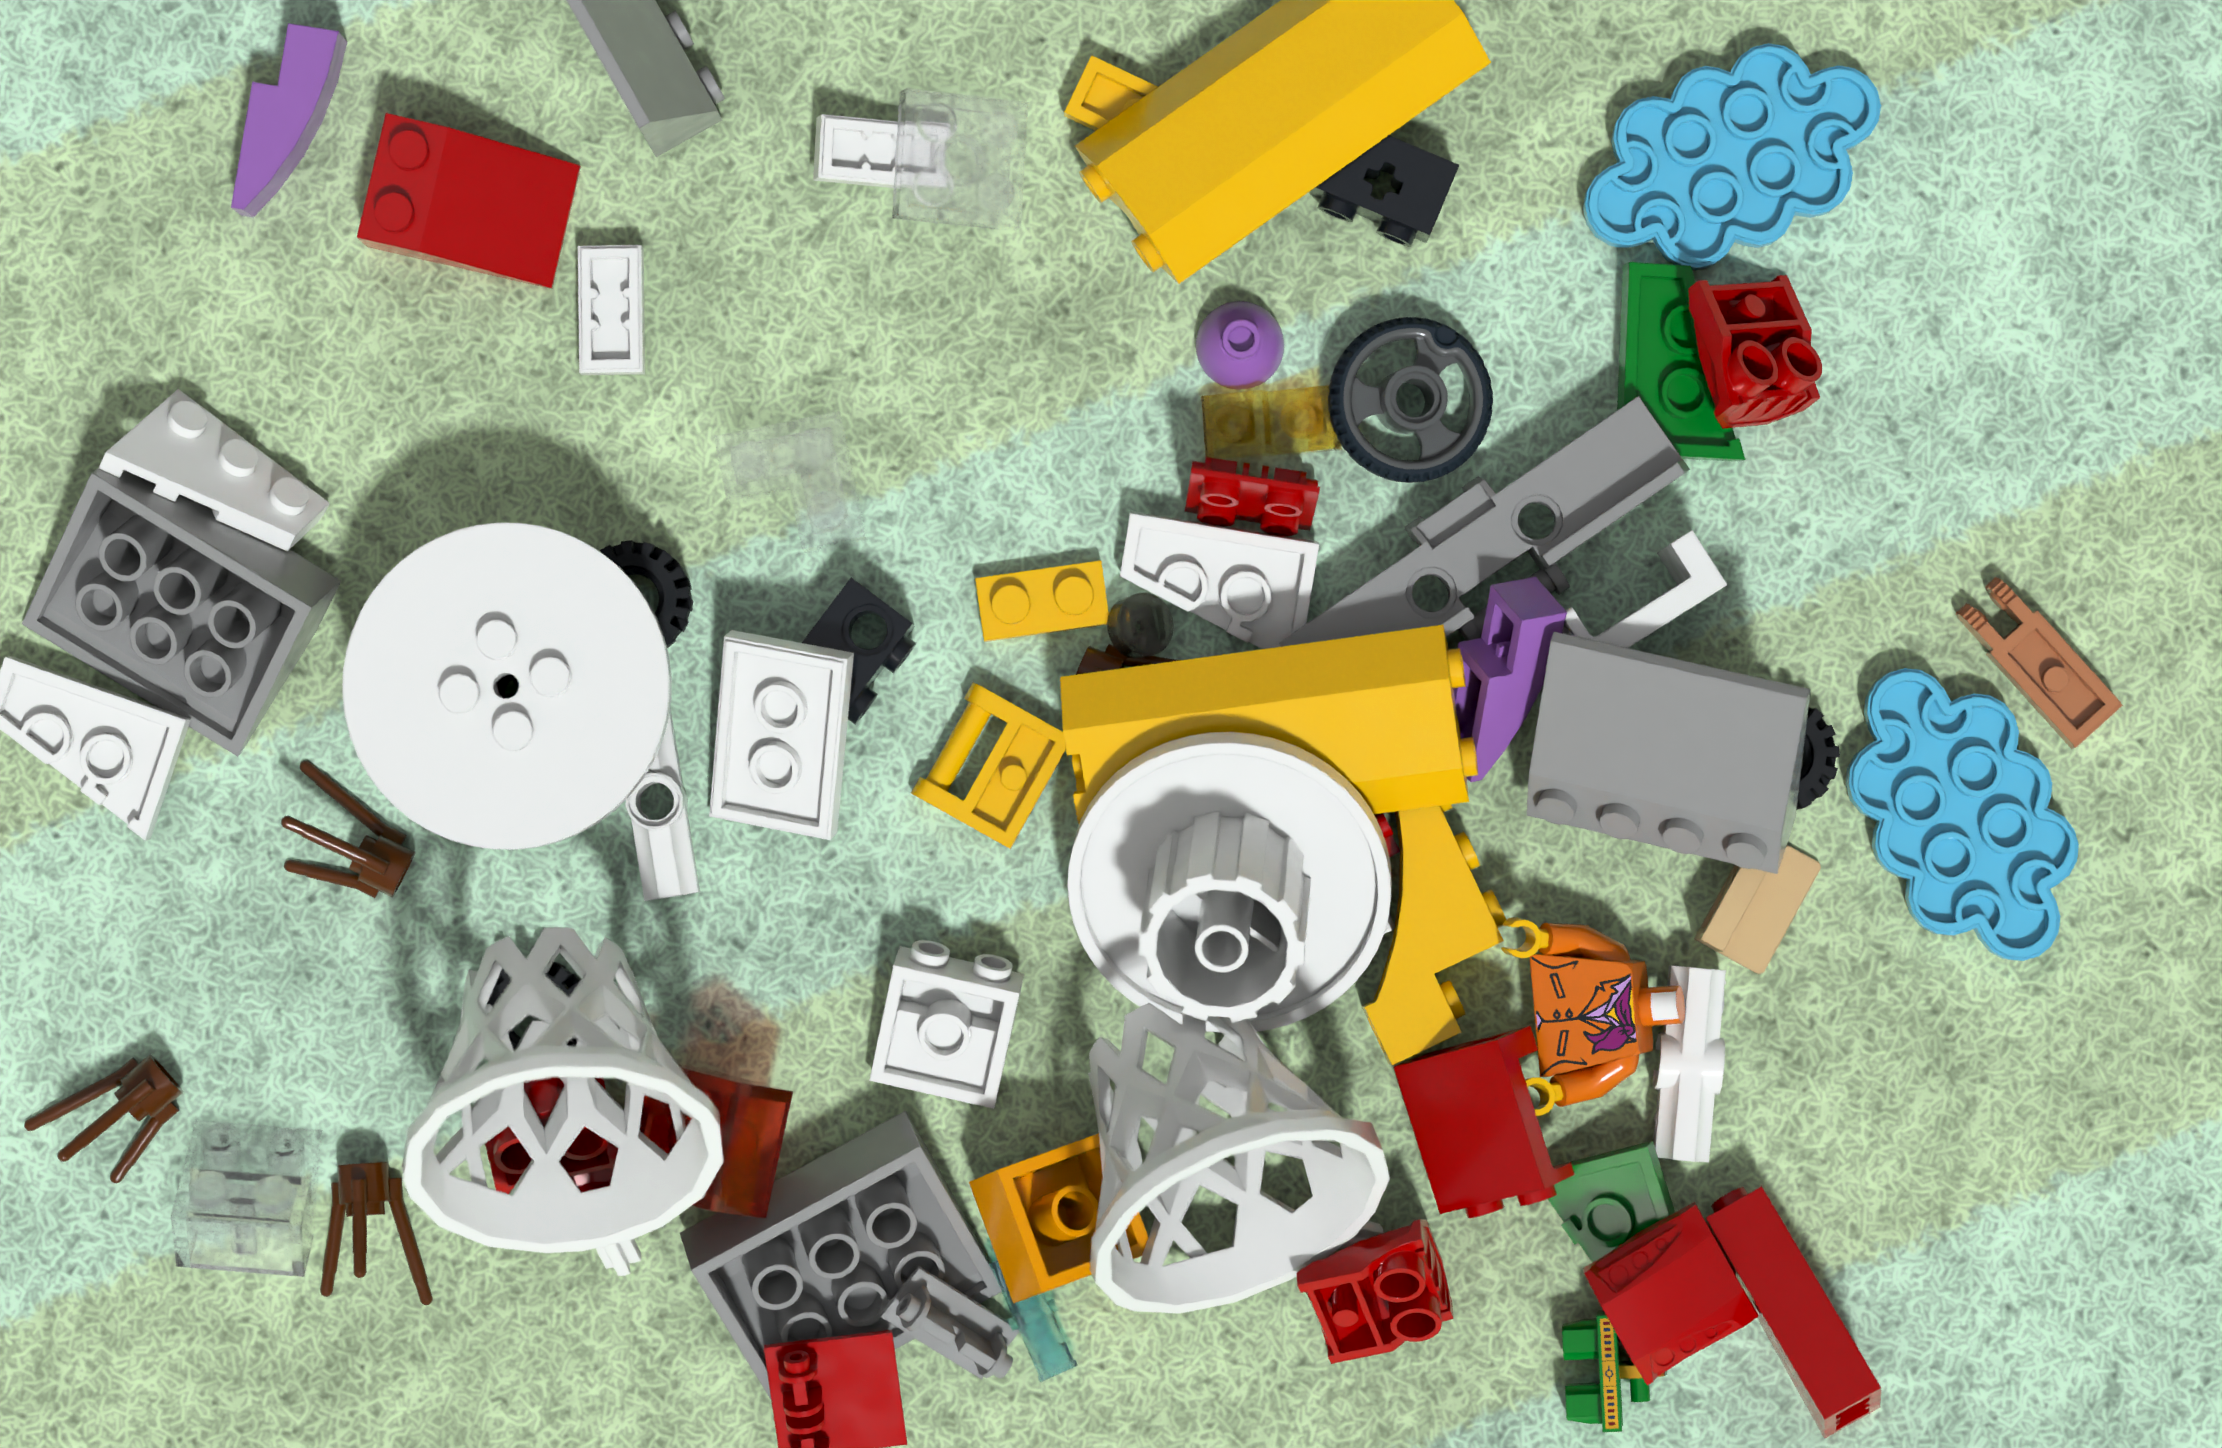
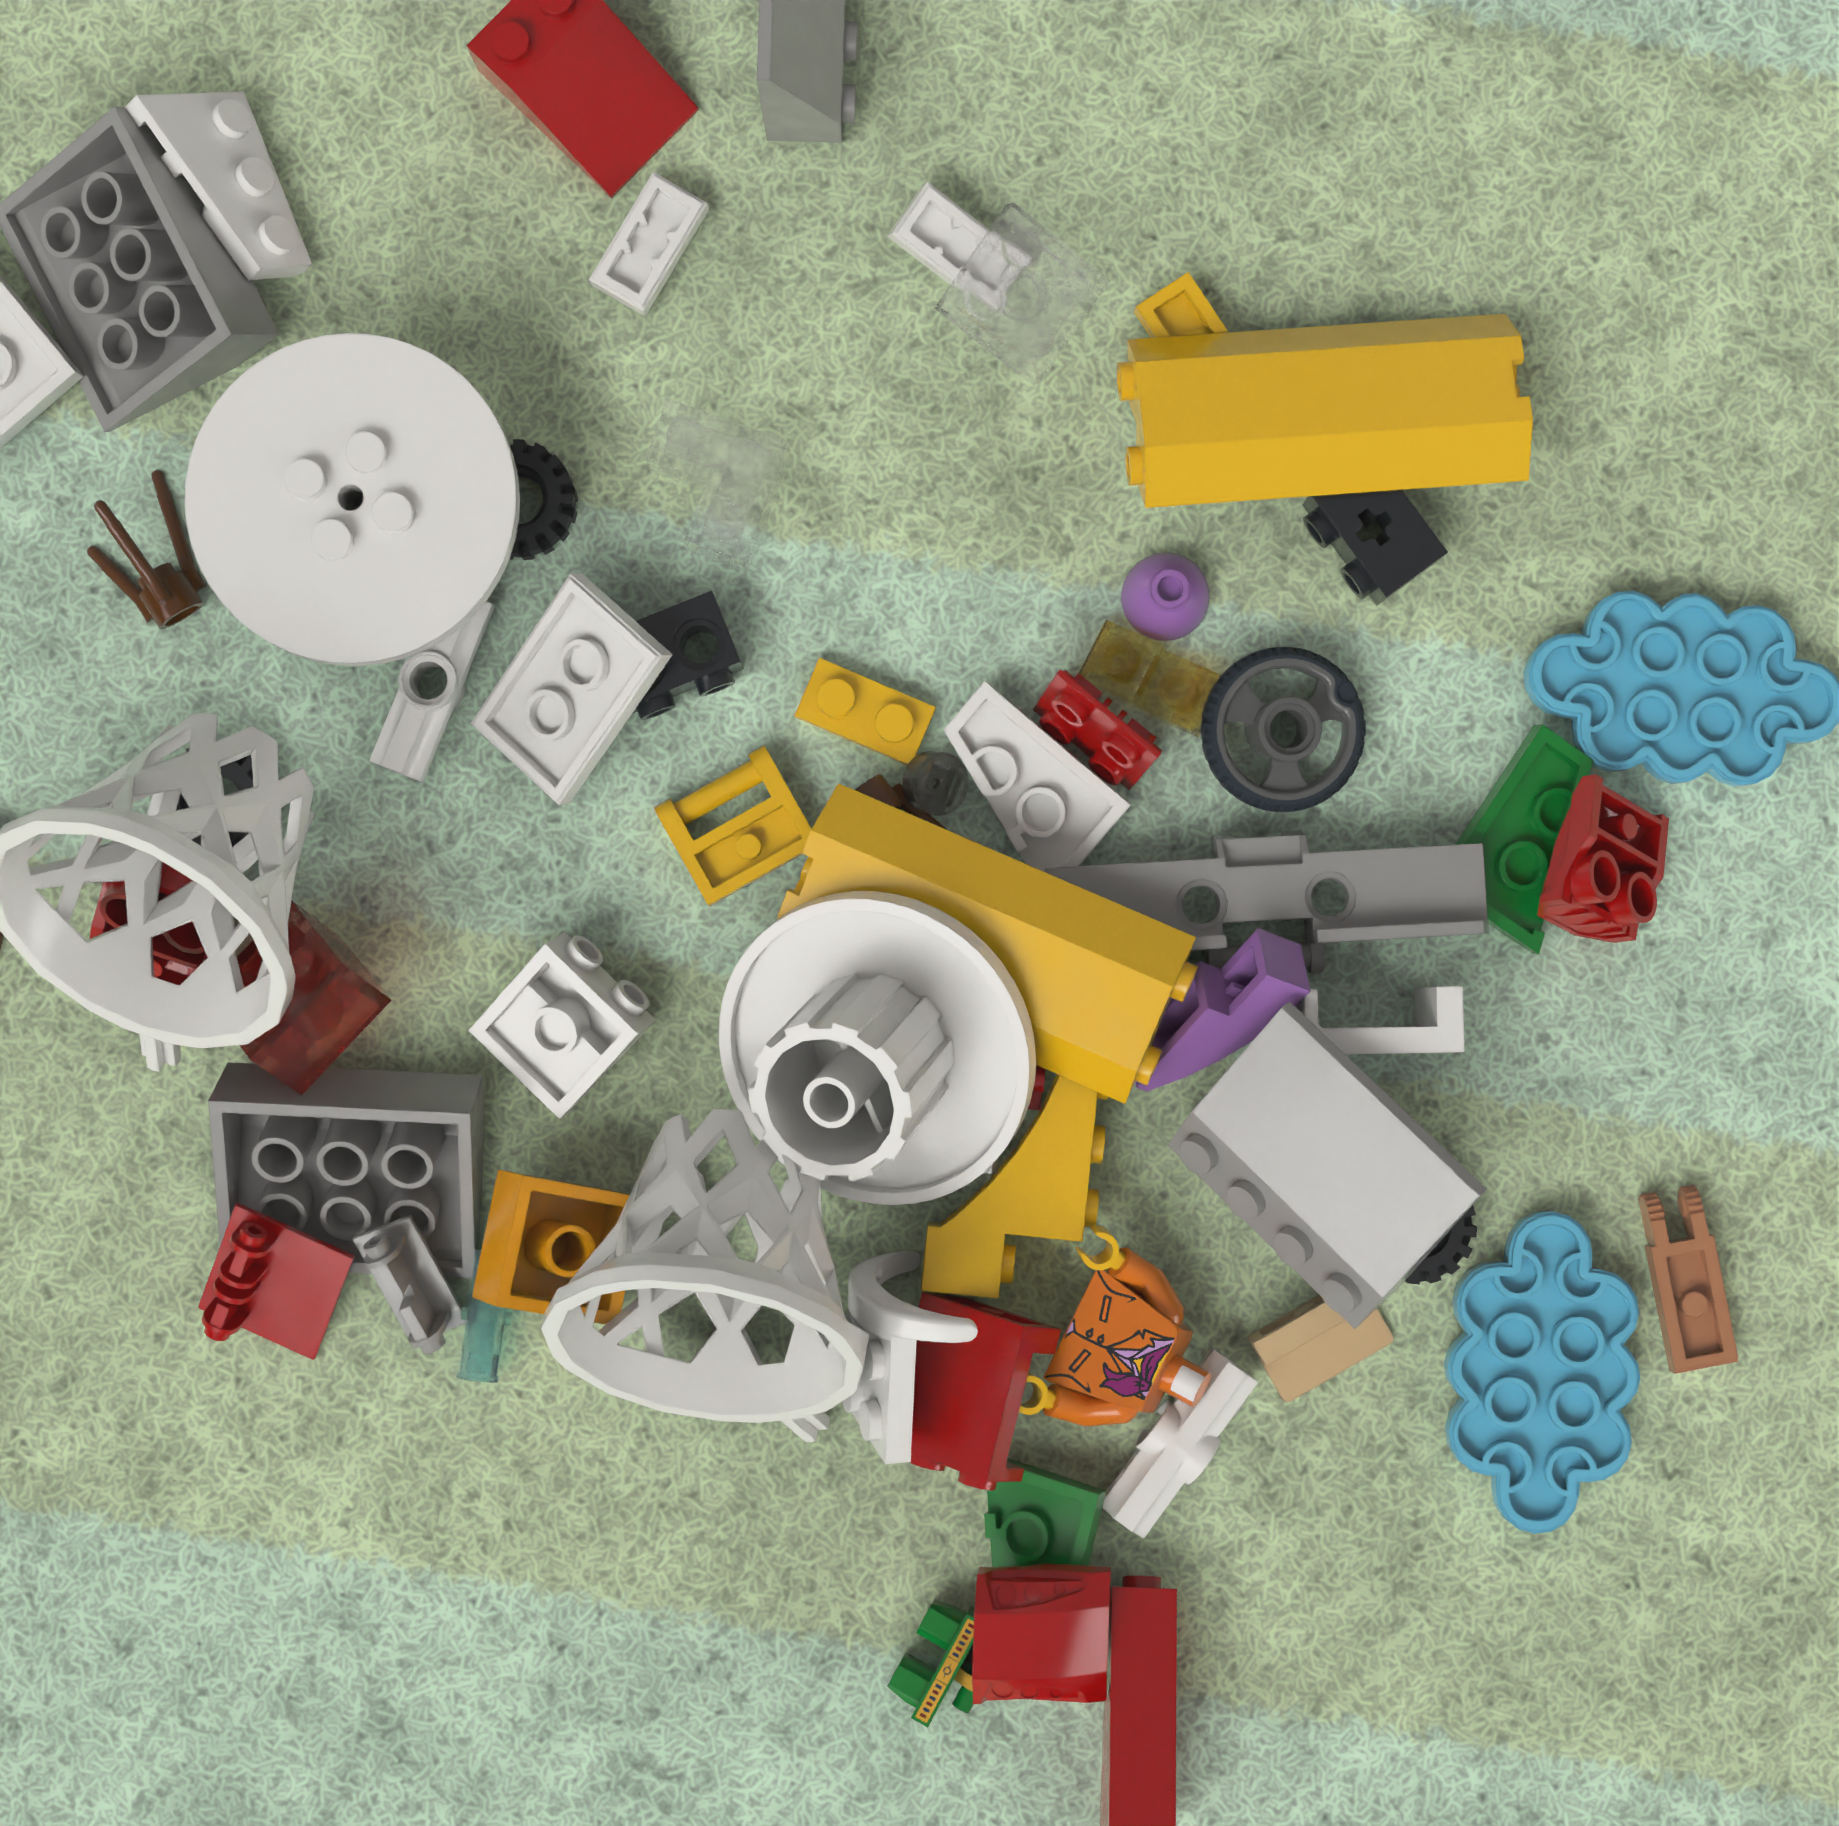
camera: 30 degrees right, 0 degrees up
(1379, 1293) = (792, 1478): red slope -> none
(1415, 1167) = (888, 1376): none -> white piece

